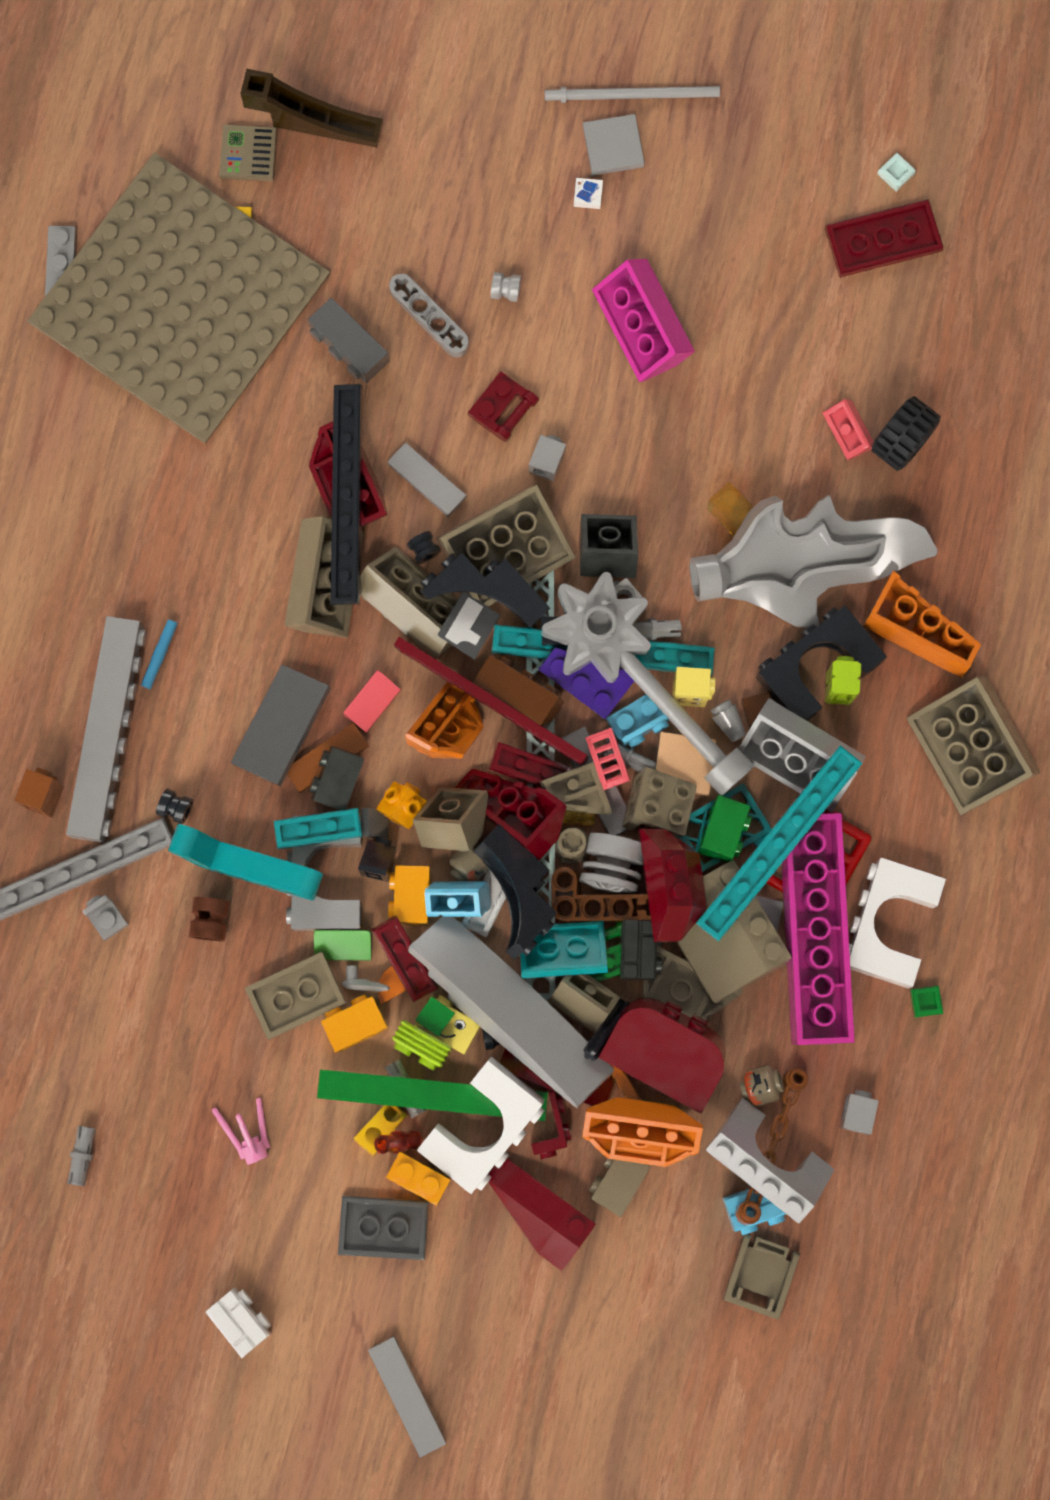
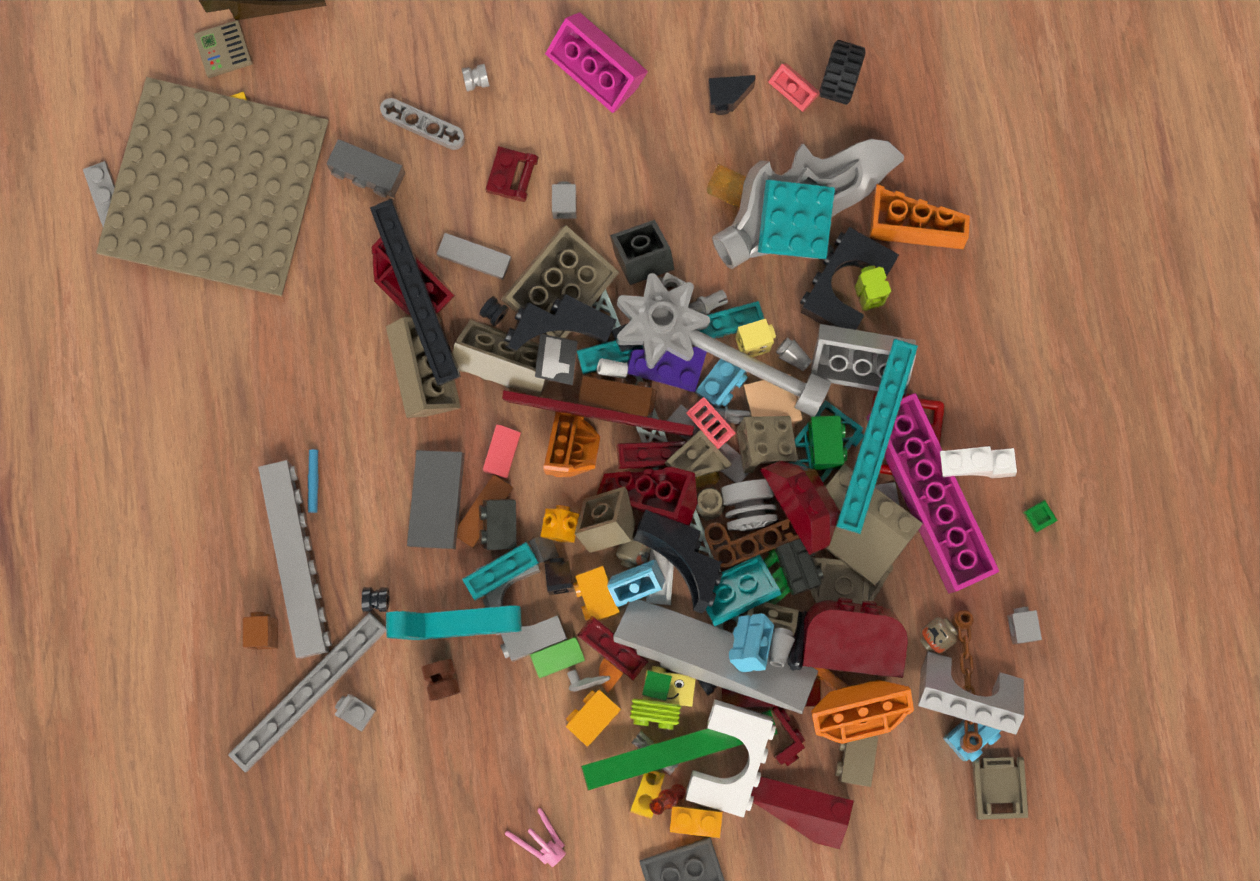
camera: 20 degrees left, 0 degrees up
(295, 995) = (536, 713): dark tan plate -> none
(534, 662) = (616, 369): none -> white piece
(553, 1011) = (751, 643): none -> medium azure brick
(584, 1026) = (780, 646): none -> light grey cone
(753, 706) = (809, 335): reddish brown tile -> none
(774, 408) = (728, 92): none -> black slope
(788, 575) = (796, 219): none -> teal plate
(880, 915) = (979, 461): none -> white arch
(888, 882) = (972, 432): white arch -> none
(973, 744) = (994, 298): dark tan slope -> none

